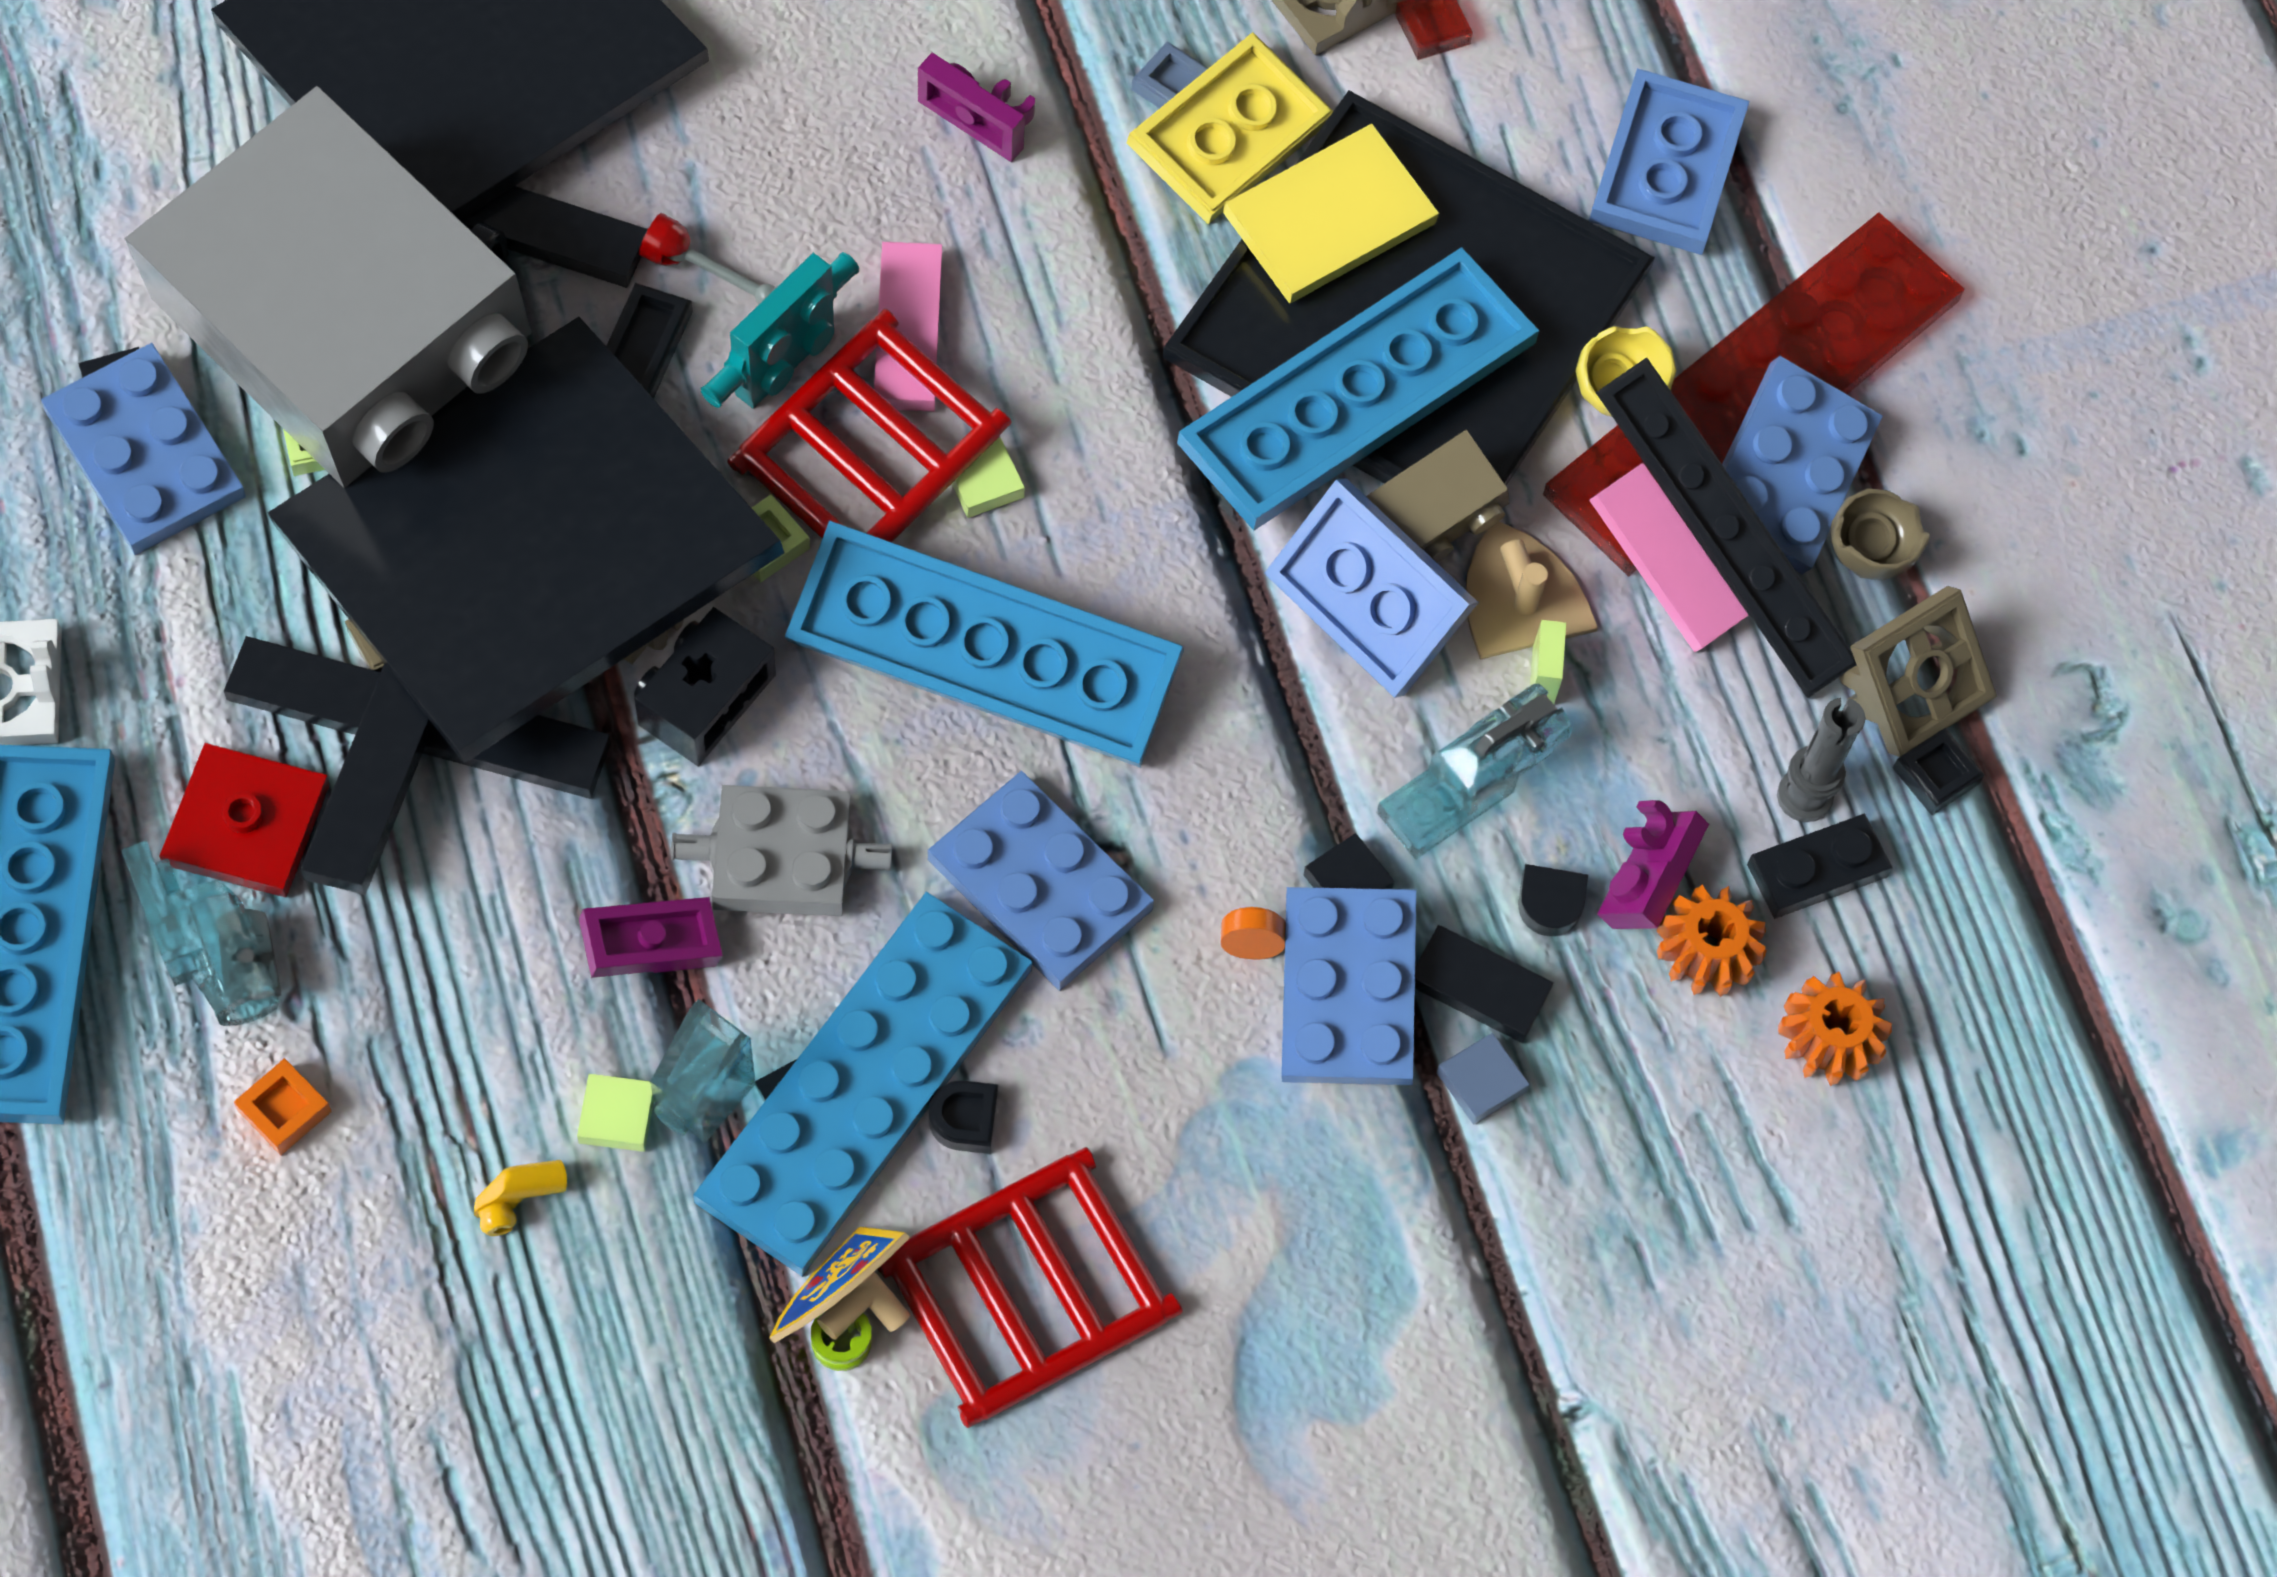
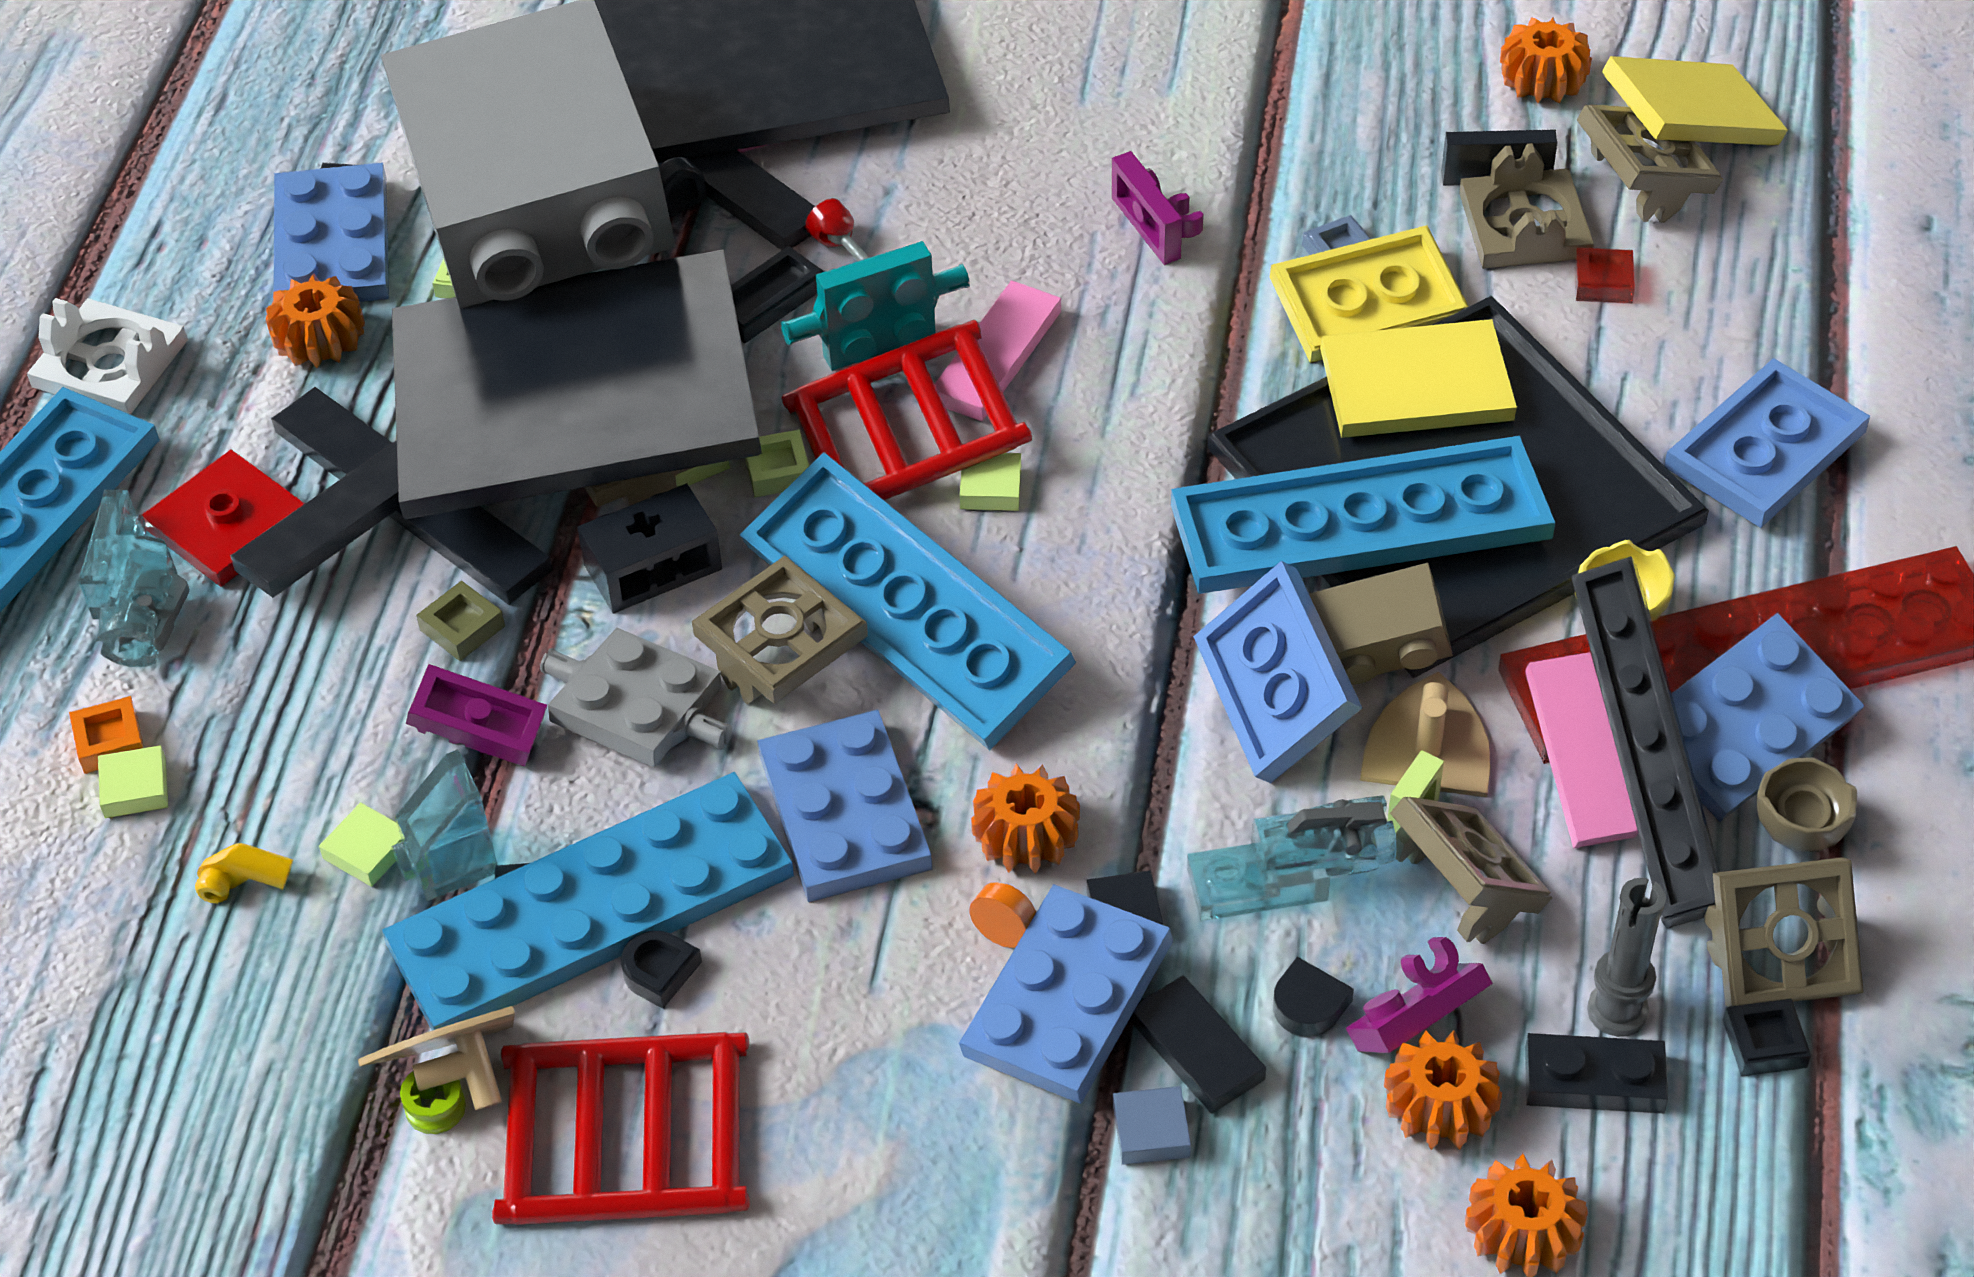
camera: 35 degrees right, 15 degrees down
(192, 540) = (315, 320): none -> orange gear
(343, 1145) = (132, 781): none -> yellowish green tile
(558, 837) = (460, 620): none -> olive tile
(904, 689) = (812, 604): none -> dark tan piece
(1244, 831) = (1025, 818): none -> orange gear
(1632, 703) = (1473, 844): none -> dark tan piece

